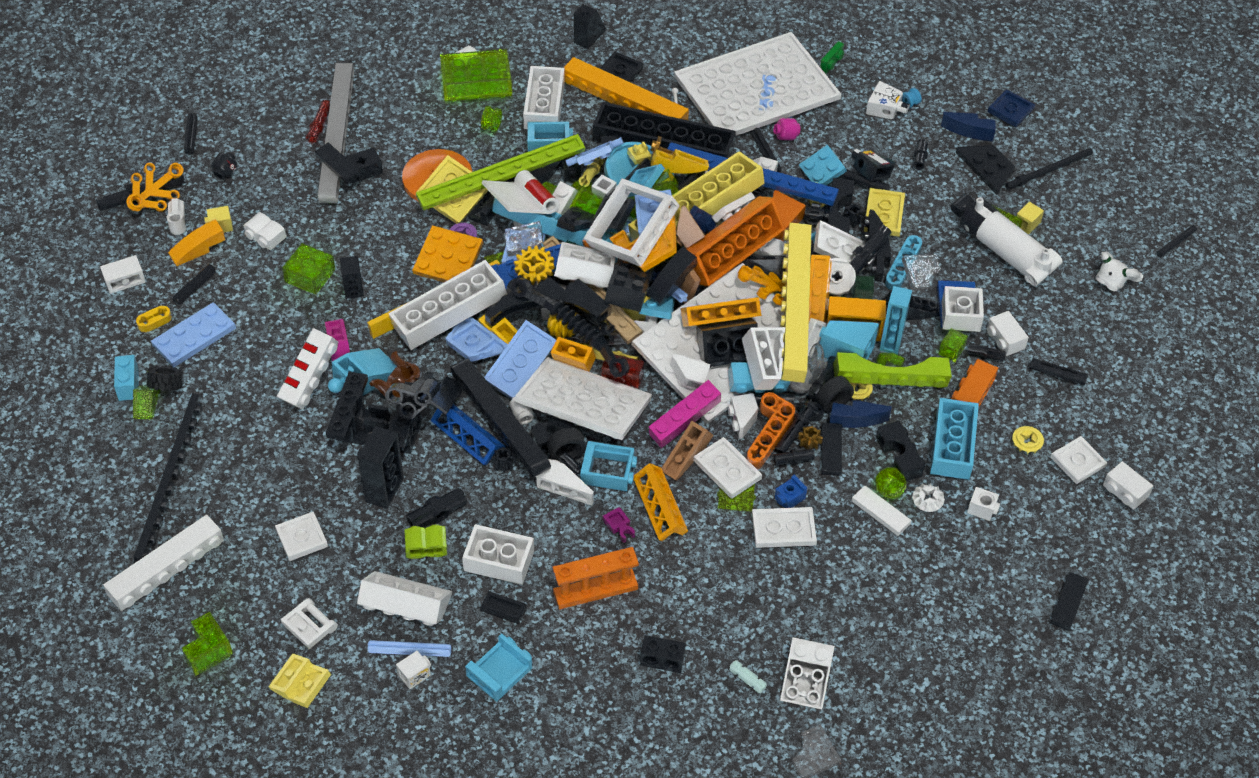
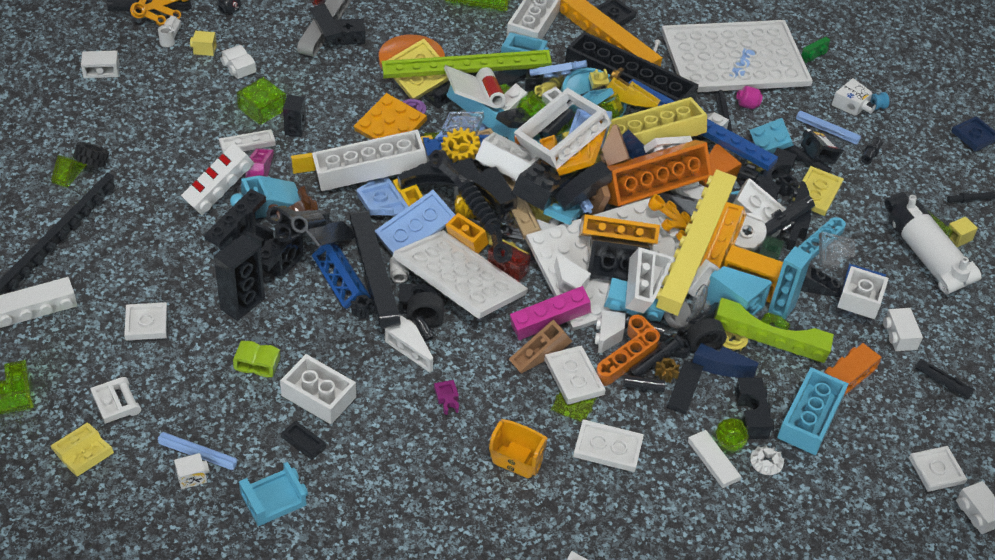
camera: 15 degrees right, 5 degrees down
(125, 376) = (61, 142): medium azure brick -> none
(153, 318) = (109, 106): yellow beam -> none
(193, 334) = (136, 128): light blue plate -> none
(194, 284) = (157, 88): black axle -> none
(197, 243) = (176, 56): light orange slope -> none
(312, 317) = (249, 141): none -> white tile
(403, 597) = (212, 402): white slope -> none
(437, 508) = (281, 332): black piece -> none
(491, 119) = (479, 23): clear neon green wheel -> none
(598, 587) = (399, 448): orange fence -> none
(609, 452) = (465, 328): medium azure window -> none
(662, 654) = (437, 529): black brick -> none
(663, 497) = (500, 383): light orange fence -> none
(706, 556) = (517, 448): none -> light orange piece
(791, 492) = (628, 415): blue brick -> none
(871, 140) = (828, 127): none -> light blue axle
(953, 345) = (843, 325): clear neon green brick -> none
(969, 125) = (928, 137): dark blue slope -> none
(977, 503) = (822, 482): white brick -> none
(986, 352) = (875, 341): black axle -> none
(988, 164) = (936, 176): black wing -> none
(1025, 432) = (890, 427): light yellow gear -> none

